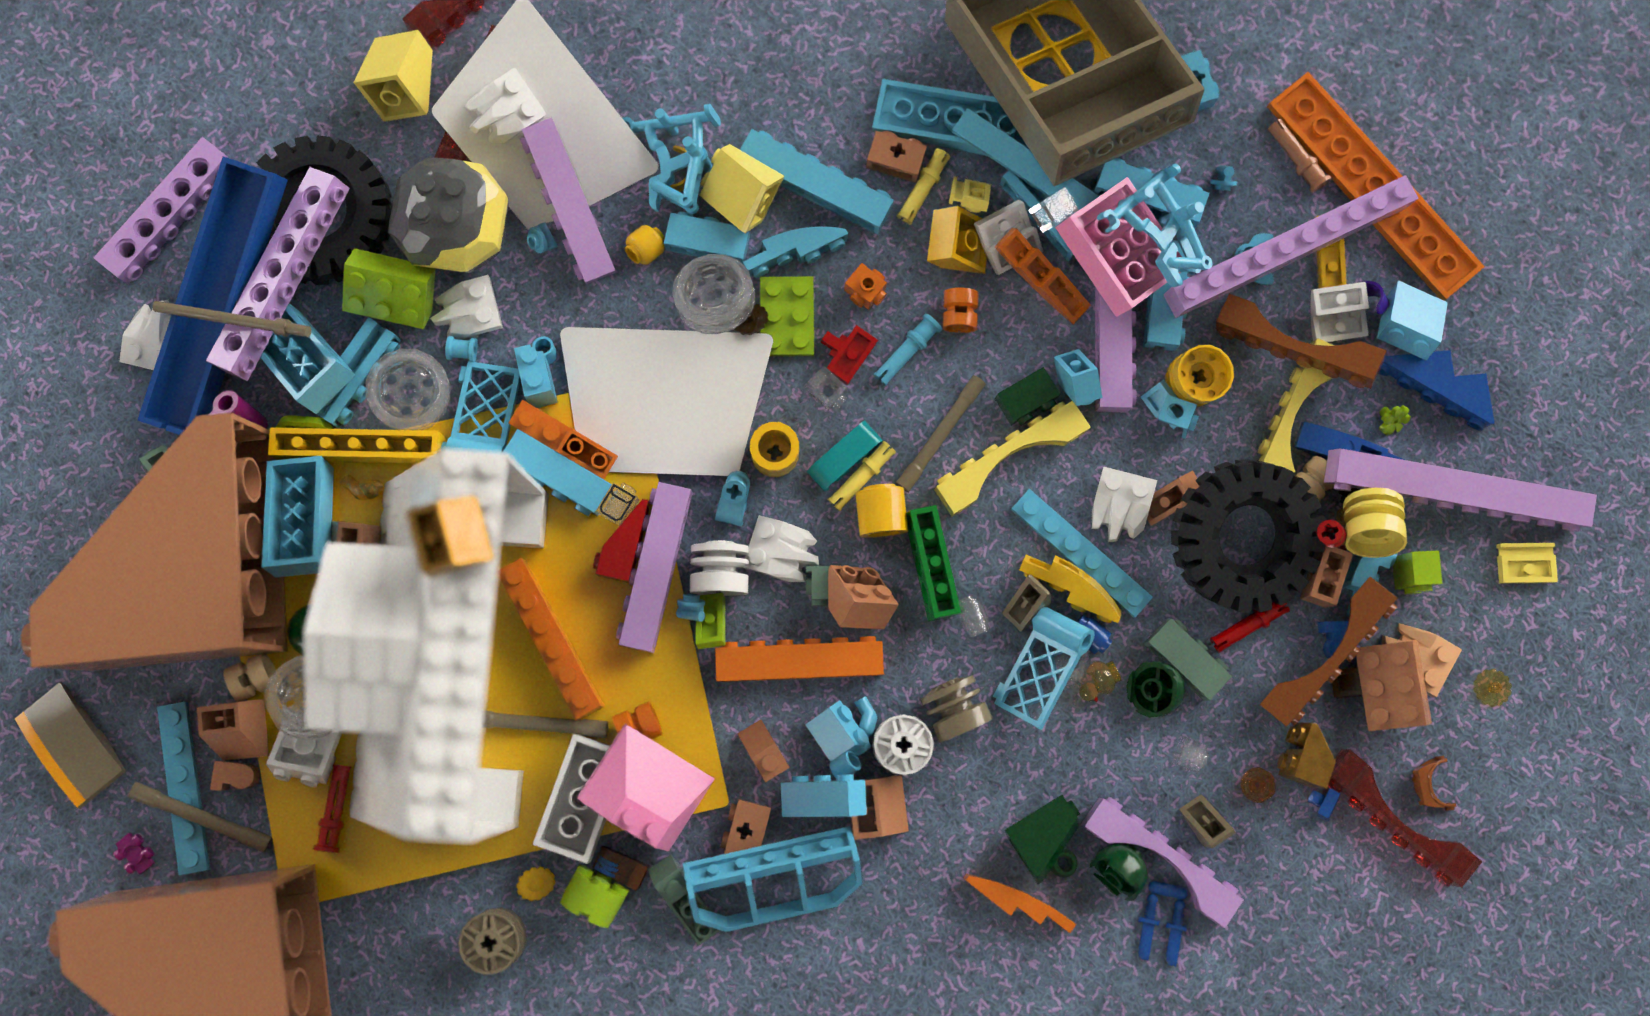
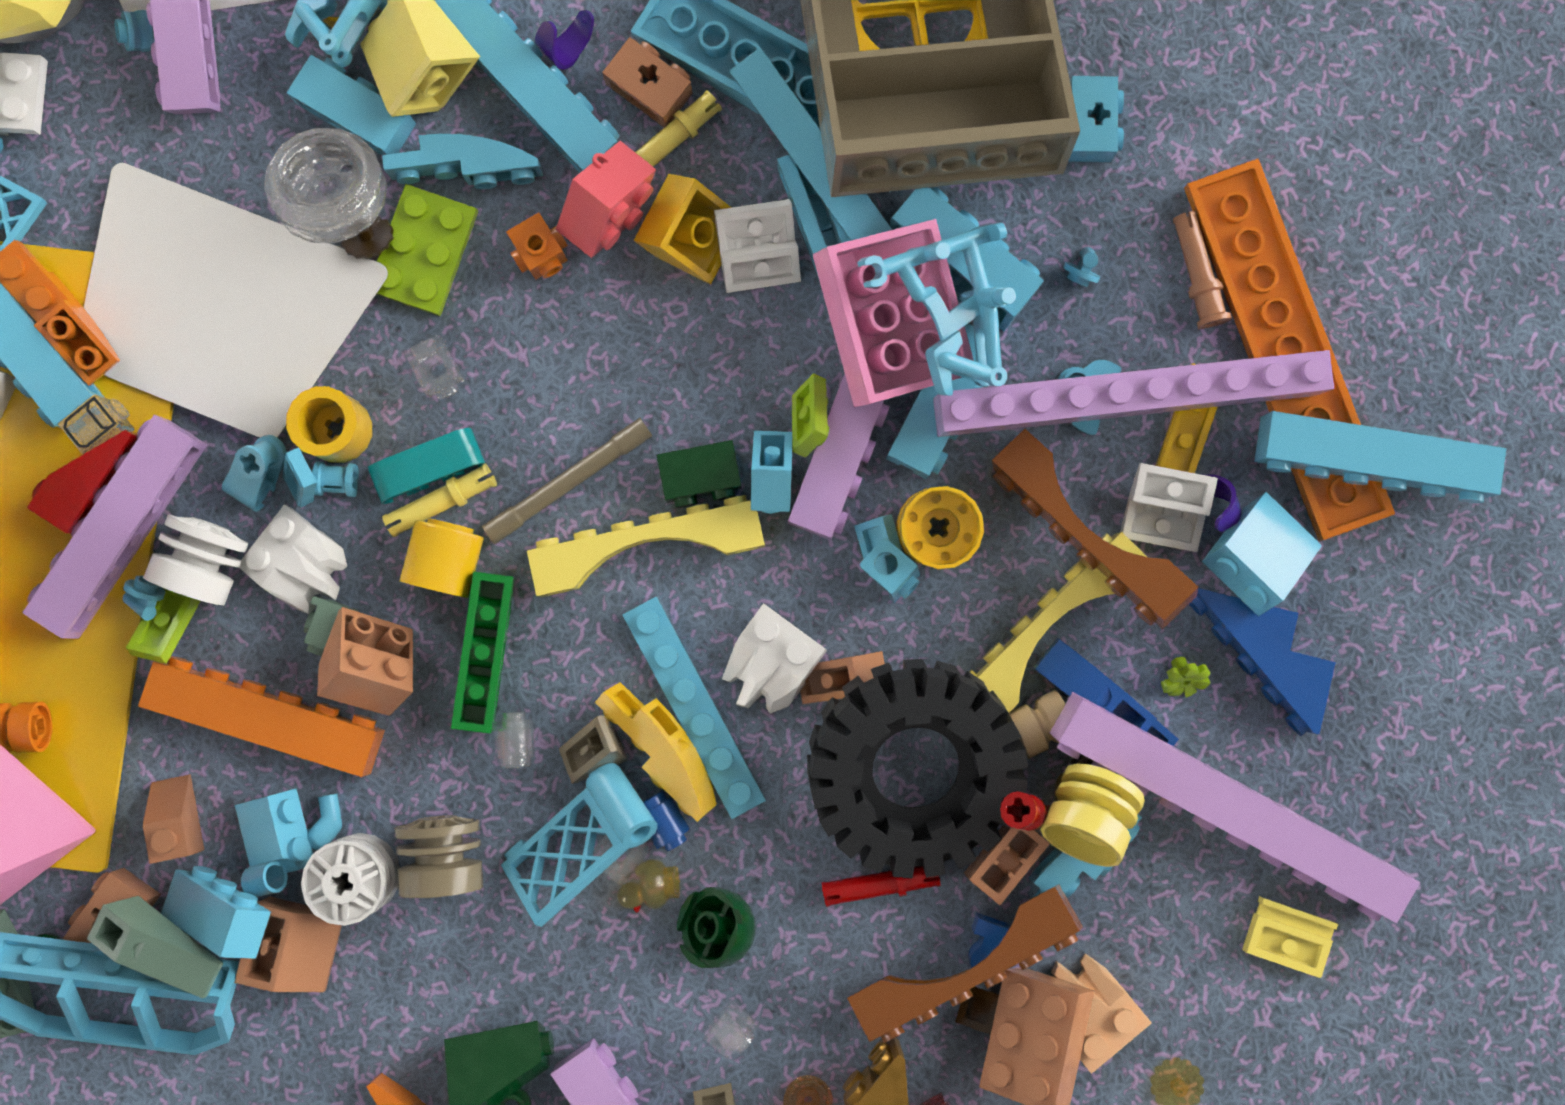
camera: 25 degrees right, 5 degrees up
(536, 372) = (56, 210): medium azure hinge -> none
(644, 244) = (265, 87): yellow head -> none
(767, 491) = (299, 477): none -> medium azure tile
(787, 486) = (336, 479): none -> medium azure bush
(797, 831) = (151, 944): none -> sand green slope
(830, 149) = (569, 45): none -> dark purple helmet
(848, 352) = (484, 328): red hinge -> none
(905, 239) = (606, 199): none -> coral brick
(915, 341) = (580, 343): medium azure pin -> none
(960, 310) = (659, 311): orange wheel -> none
(971, 194) = (724, 169): light yellow plate -> none
(1042, 275) = (781, 311): orange slope -> none
(1054, 209) = (820, 228): clear brick -> none
(1087, 333) = (809, 415): none -> lime plate
(1189, 658) = (779, 901): sand green brick -> none
(1417, 572) = (1131, 899): lime brick -> none
(1461, 232) = (1380, 456): none -> medium azure brick

